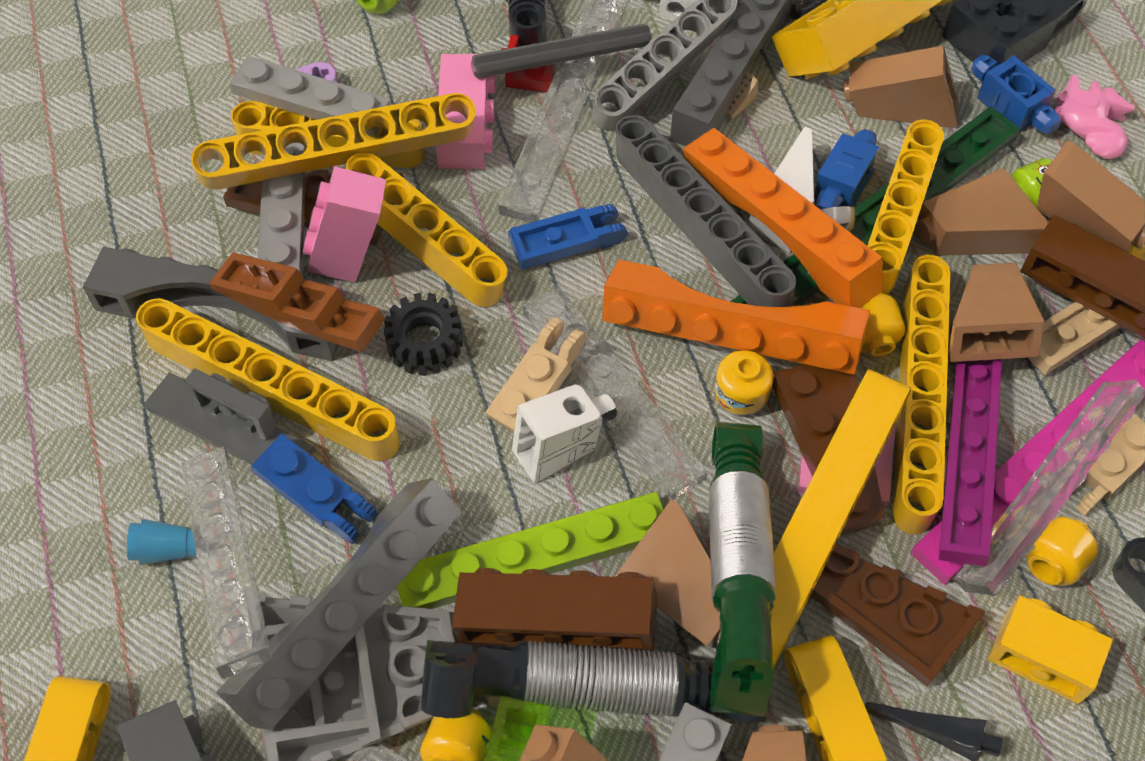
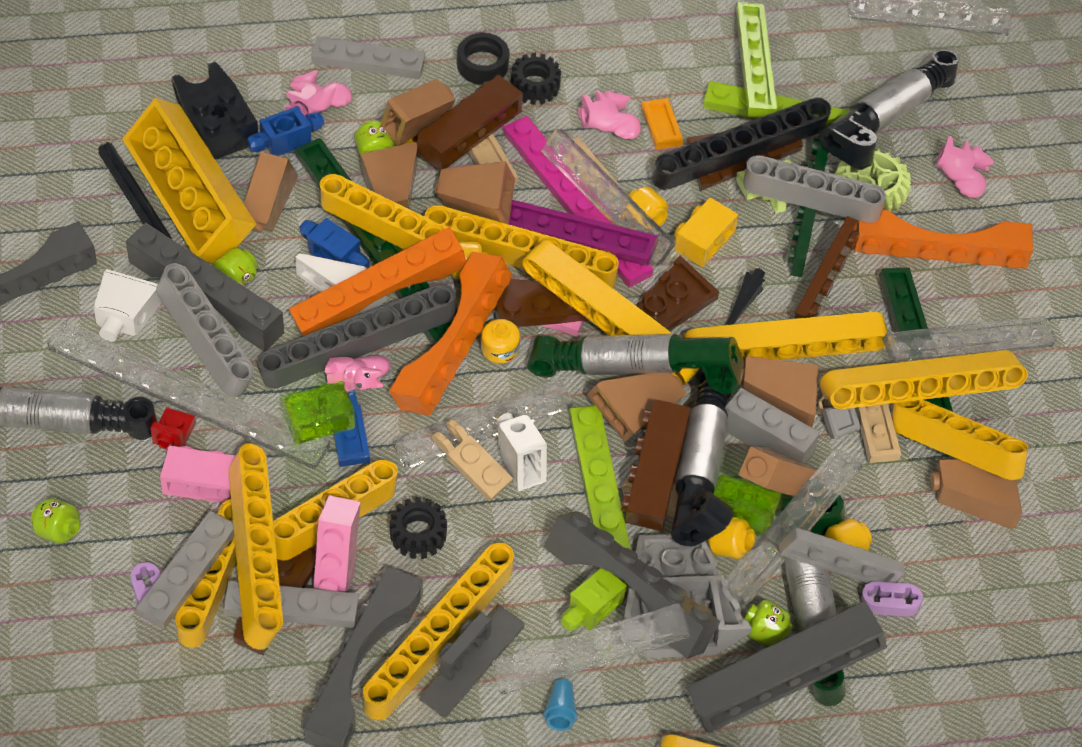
camera: 85 degrees left, 5 degrees down
(296, 302) = (392, 590): dark orange slope -> none
(311, 487) = (534, 607): blue hinge -> none
(314, 552) = (594, 600): none -> lime piece
(560, 50) = (180, 395): dark grey axle -> none
(563, 186) = (318, 412): none -> clear neon green brick
(644, 219) = (358, 372): none -> bright pink animal
(777, 81) = (238, 265): none -> lime head
(843, 215) = (381, 253): light grey hinge -> none

